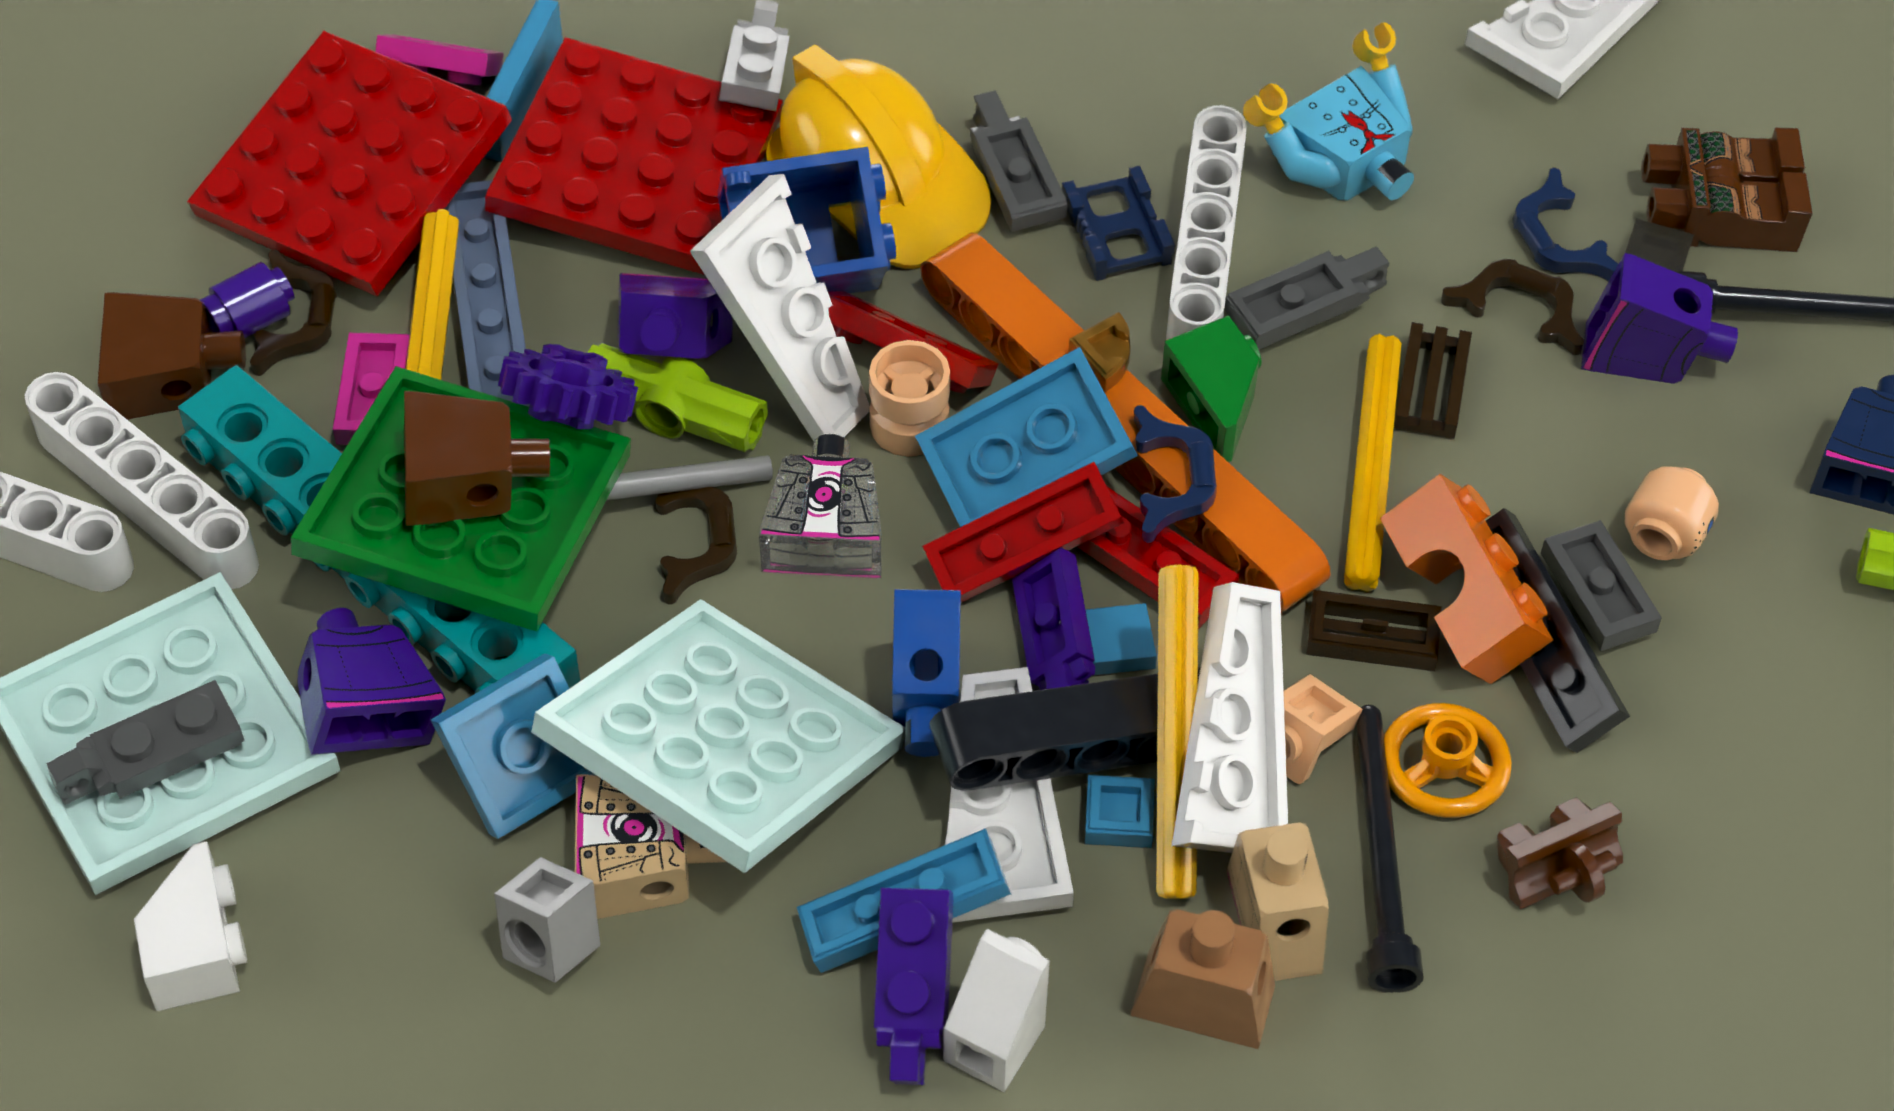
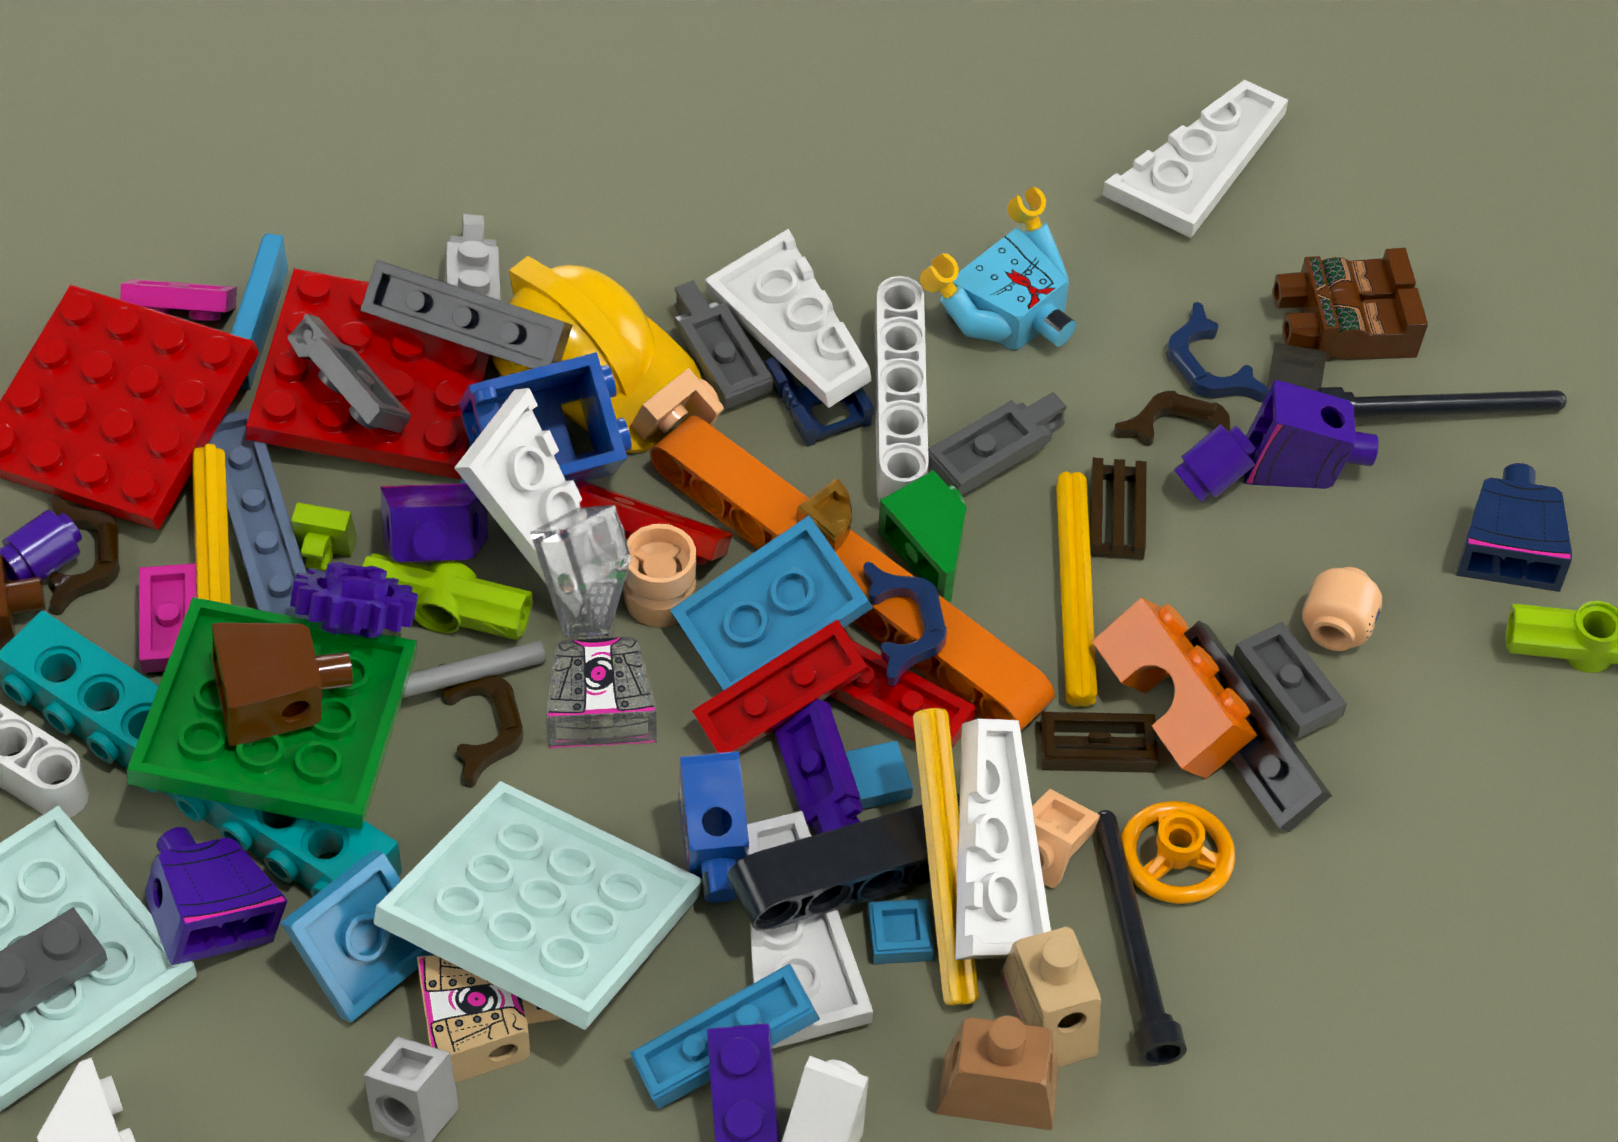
camera: 10 degrees left, 0 degrees up
(552, 315) = (323, 533): none -> lime tile
(602, 152) = (348, 375): none -> dark grey hinge
(735, 100) = (465, 317): none -> plate
(823, 378) = (584, 567): none -> clear slope
(955, 216) = (676, 401): none -> light nougat bracket
(1098, 140) = (790, 316): none -> white wing
(1550, 340) = (1216, 462): none -> dark purple brick
(1565, 857) = (1294, 928): reddish brown hips -> none

